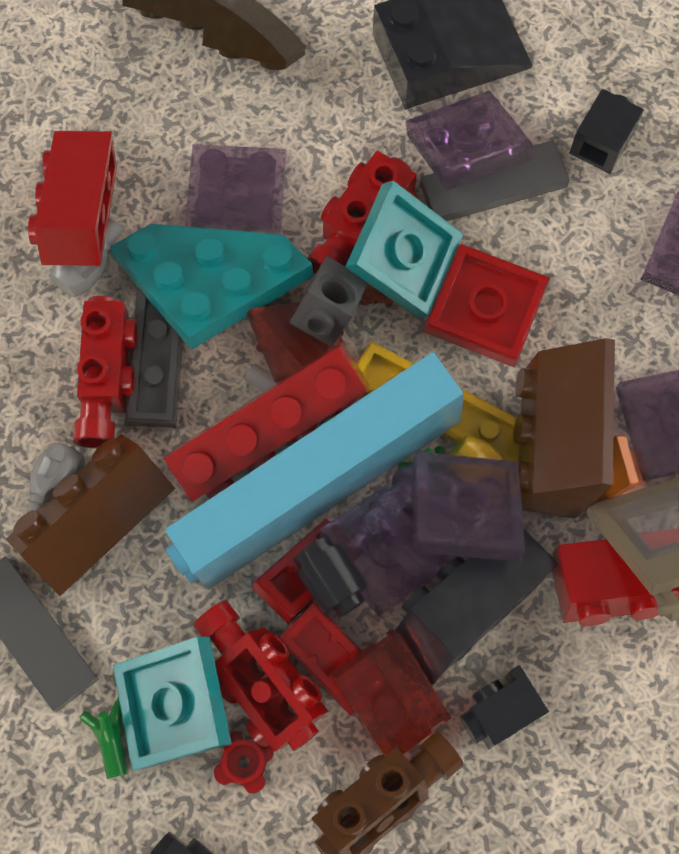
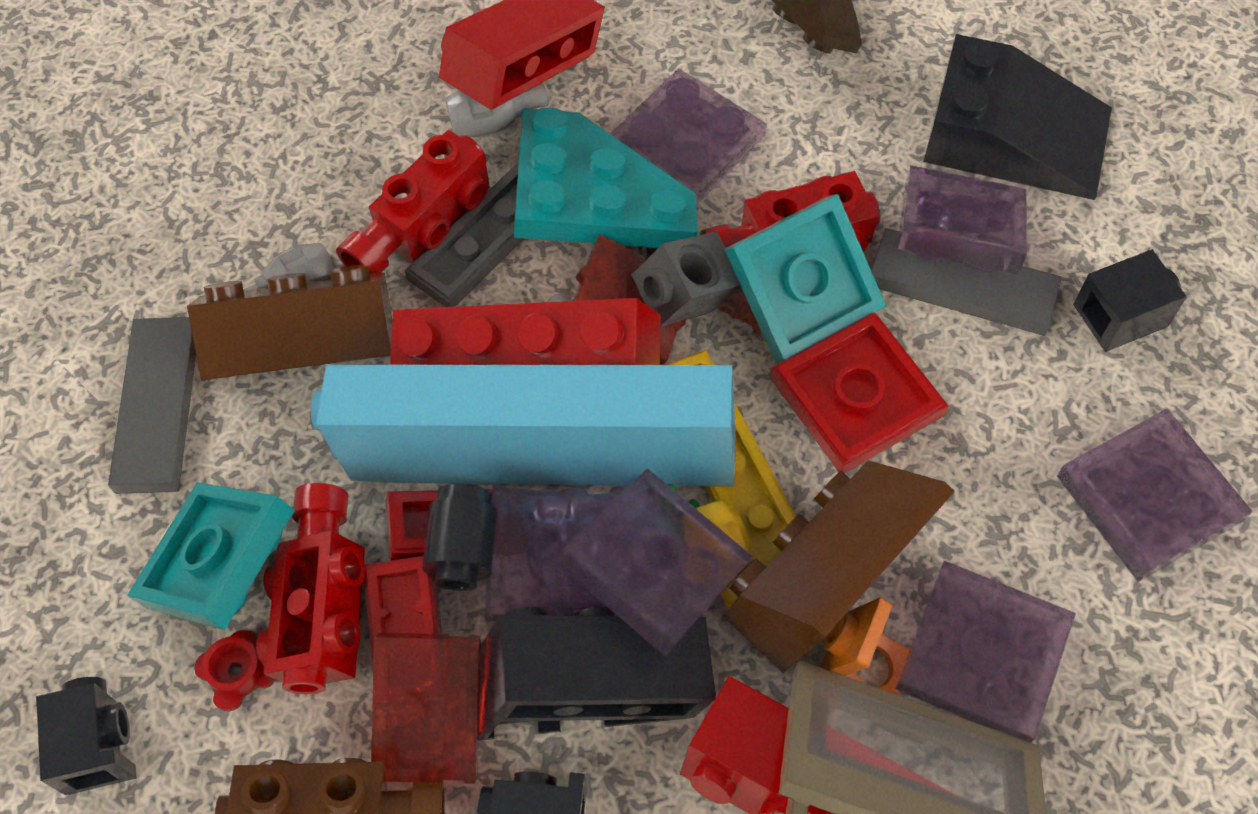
camera: 40 degrees right, 10 degrees down
(108, 733) = (133, 554): green bar -> none

